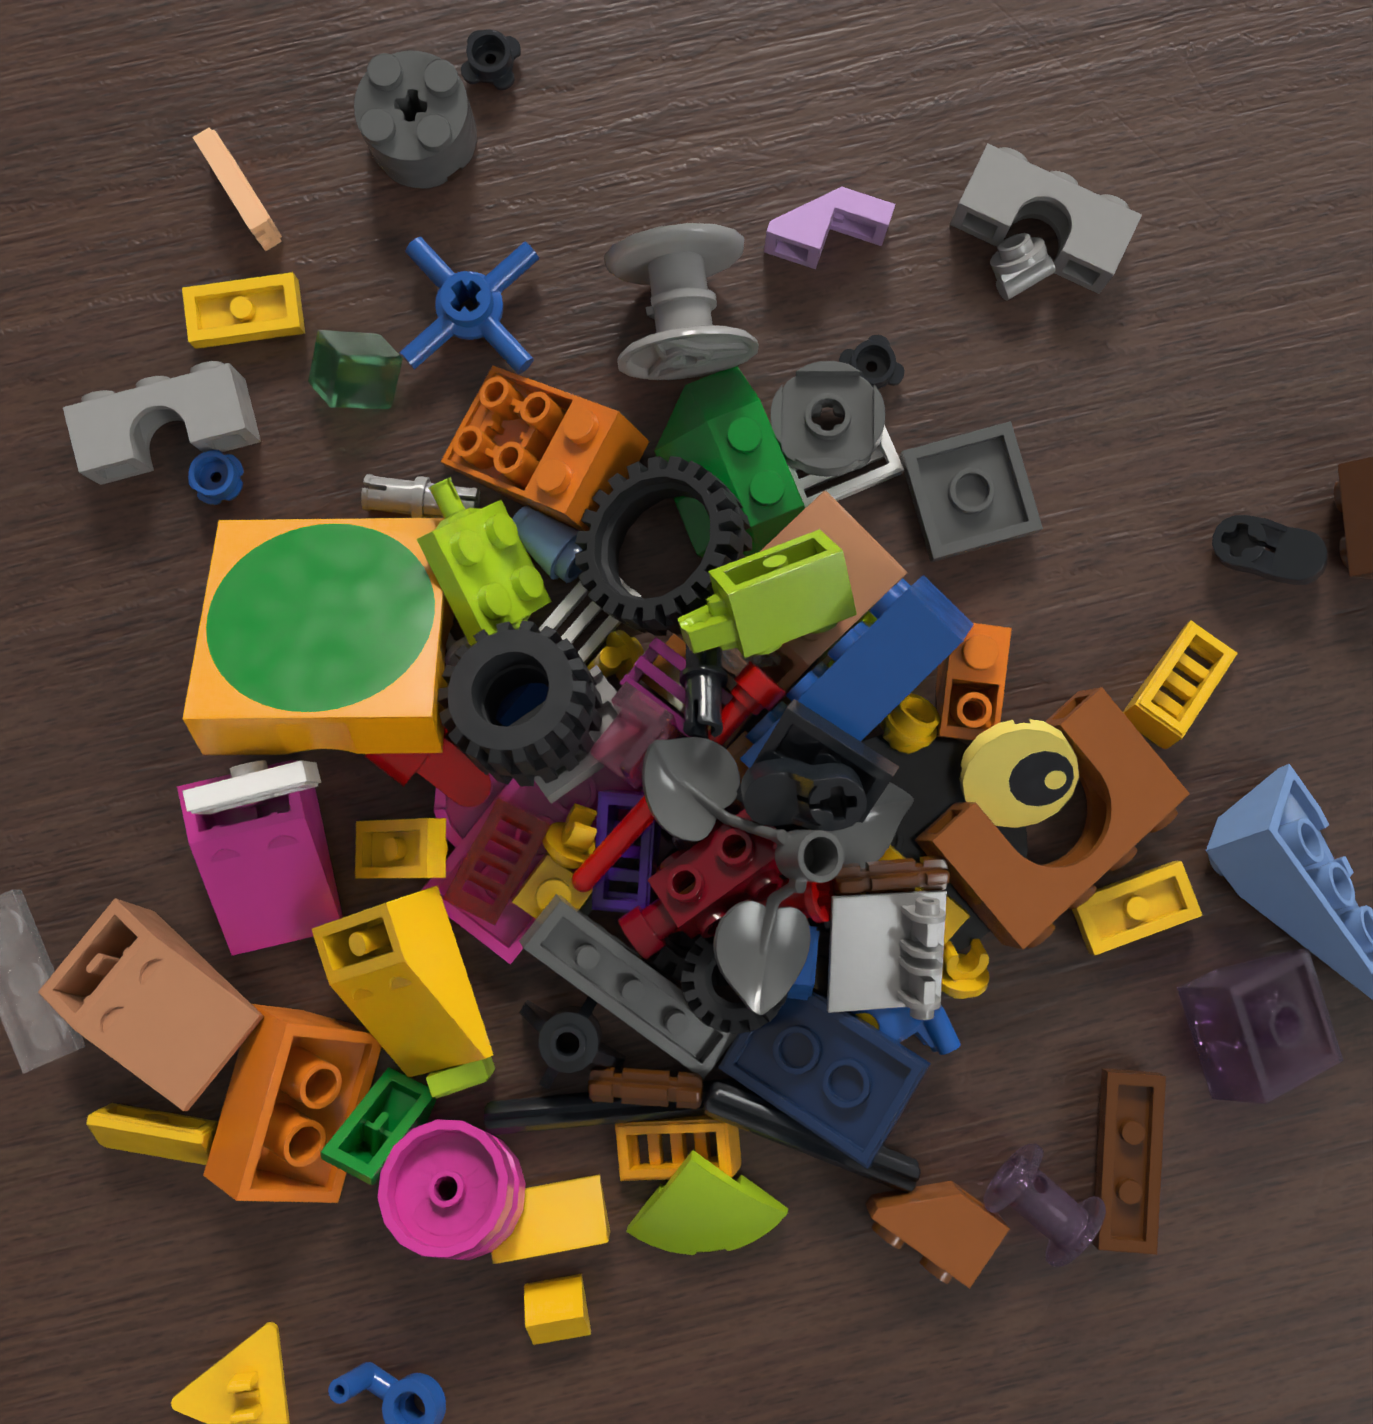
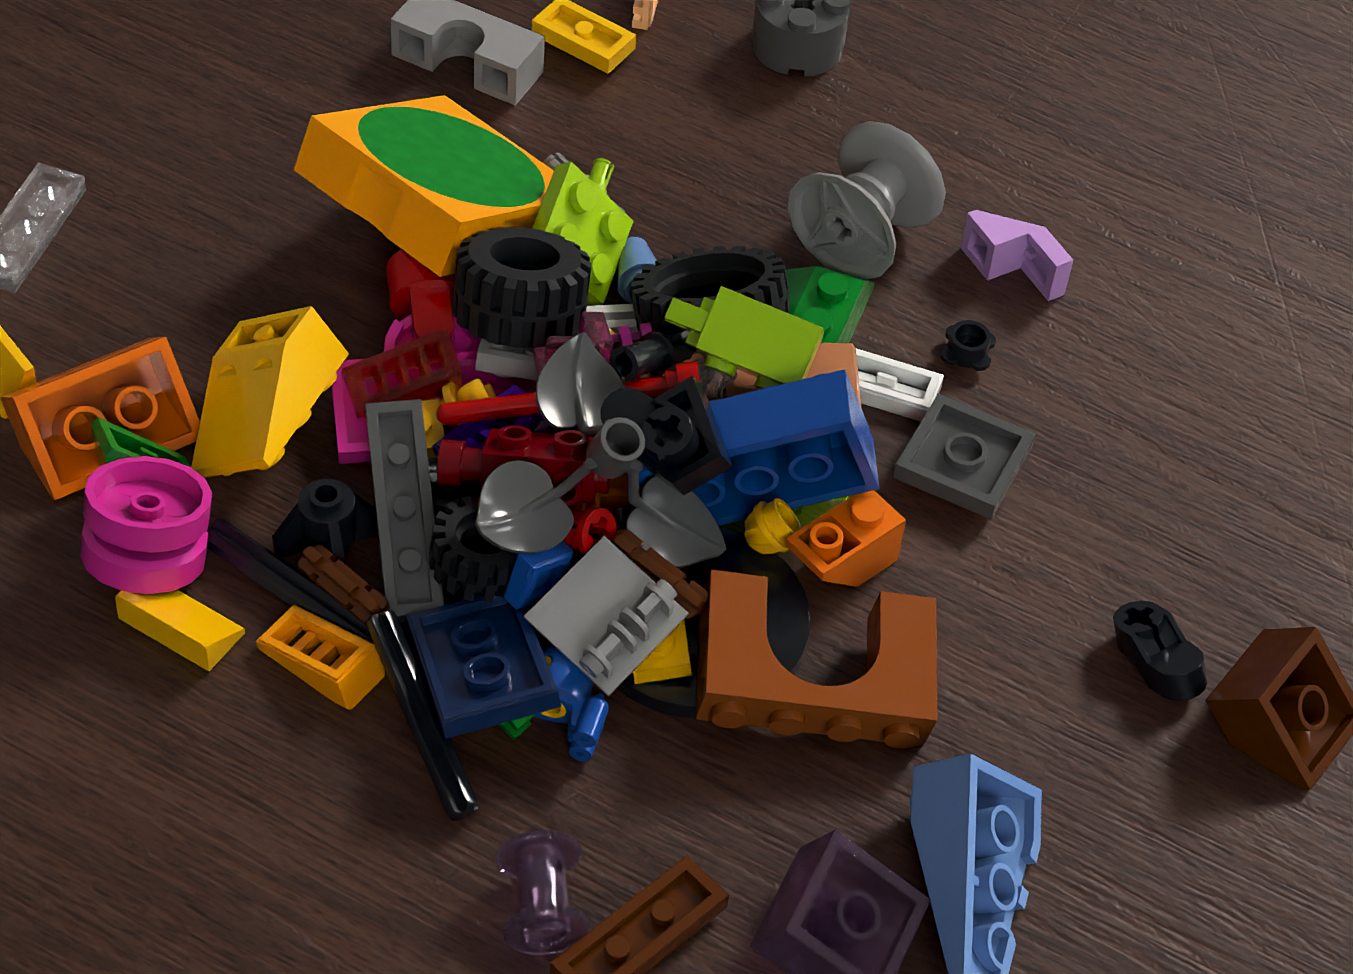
camera: 35 degrees right, 35 degrees down
(151, 1002) = (93, 277): nougat slope -> none
(204, 468) = (468, 90): blue plate -> none
(251, 784) = (304, 202): white plate -> none
(265, 867) = (259, 263): dark pink slope -> none
(354, 369) = (617, 105): clear green panel -> none
(401, 848) = (362, 328): yellow plate -> none
(459, 1077) = (232, 484): lime tile -> none
(466, 285) = (728, 126): blue bar -> none
(486, 44) = (883, 34): black plate -> none
(543, 446) = (691, 214): orange slope -> none
(556, 1309) = (113, 679): yellow slope -> none
(705, 1211) = (292, 696): lime brick -> none
(850, 396) = (880, 342): dark grey plate -> none
(941, 1224) = (453, 849): dark orange slope -> none
(965, 974) = (642, 714): yellow plate -> none
(1019, 772) = (820, 605): light yellow tile -> none
(1020, 264) = (1137, 369): light grey plate -> none
(1089, 226) = (1202, 381): light grey arch -> none
(1137, 908) = (822, 780): yellow plate -> none
(1159, 715) = (971, 695): yellow slope -> none

